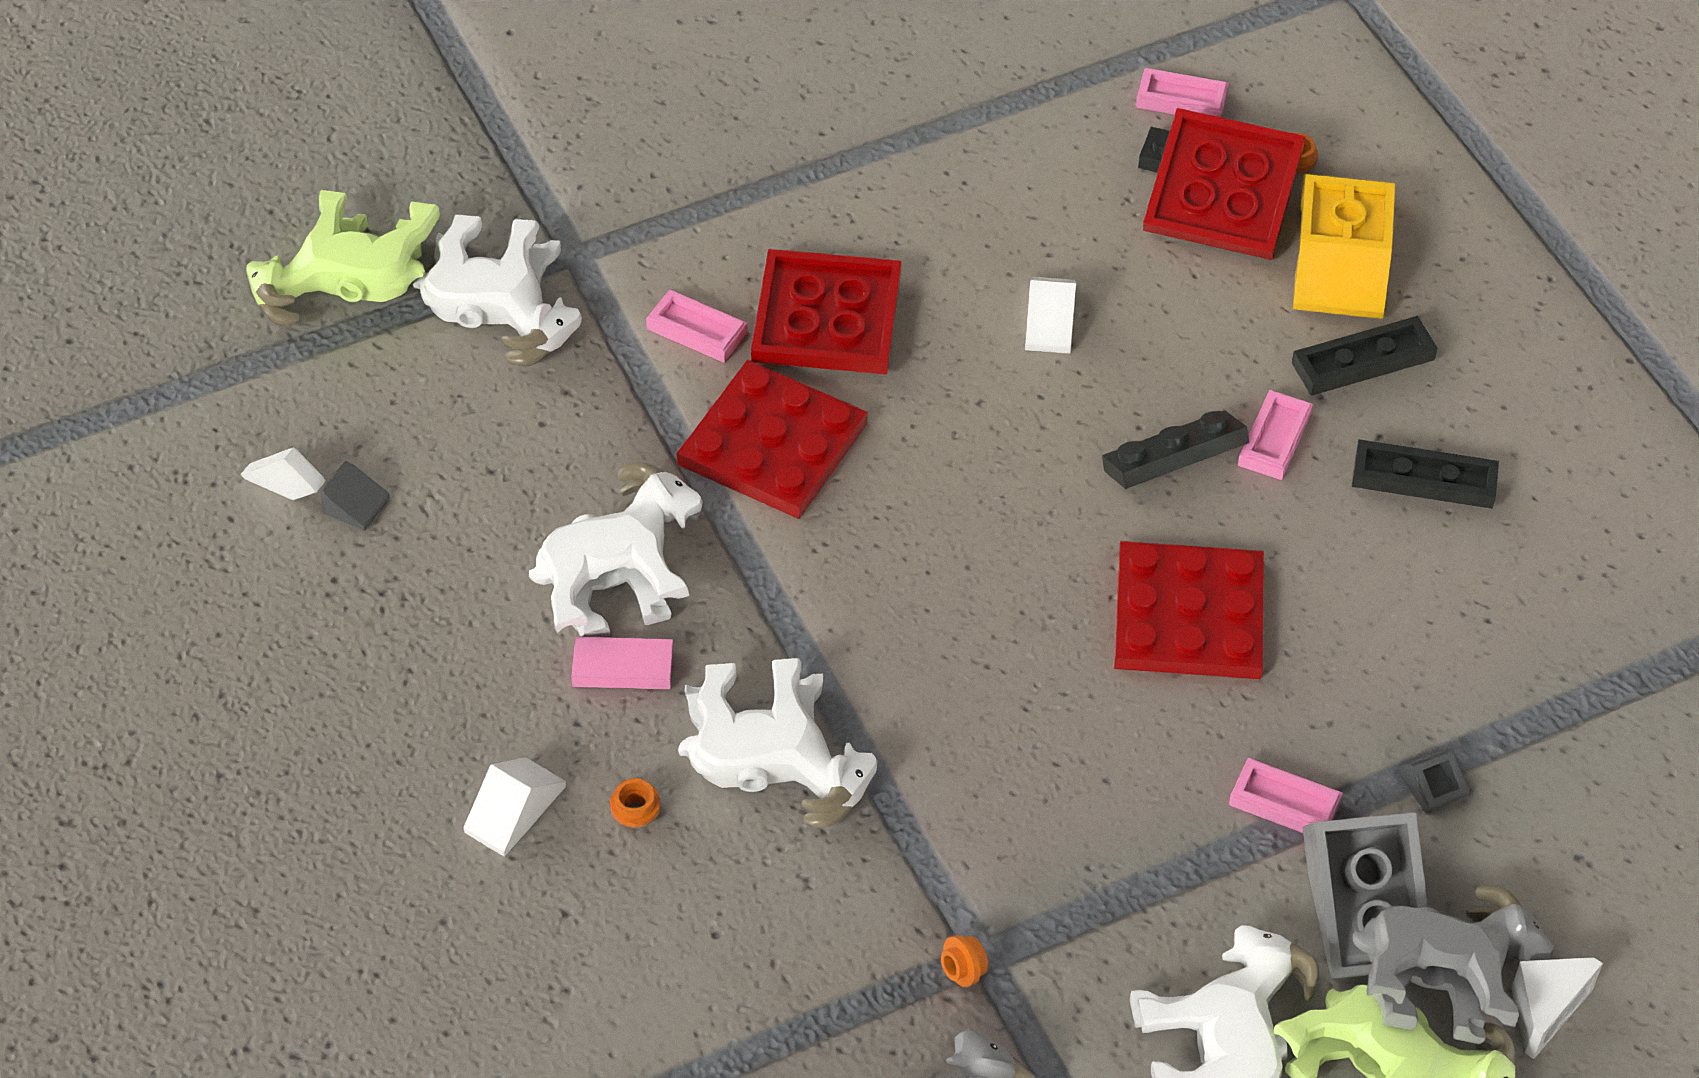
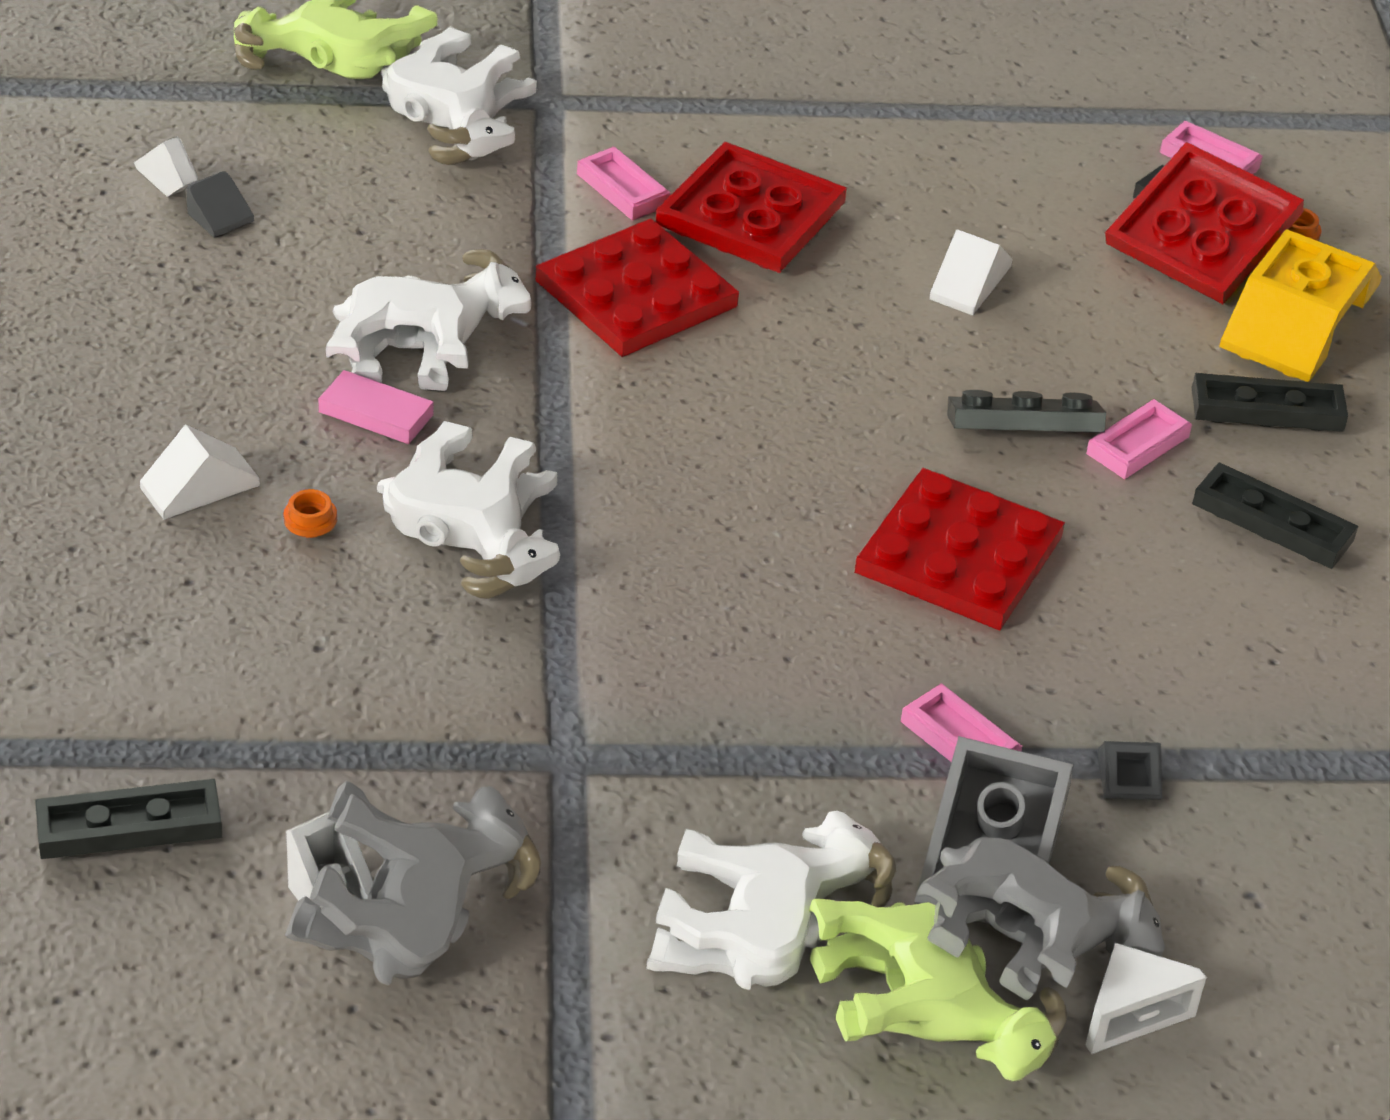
camera: 20 degrees right, 10 degrees down
(964, 960) = (539, 745): orange plate -> none

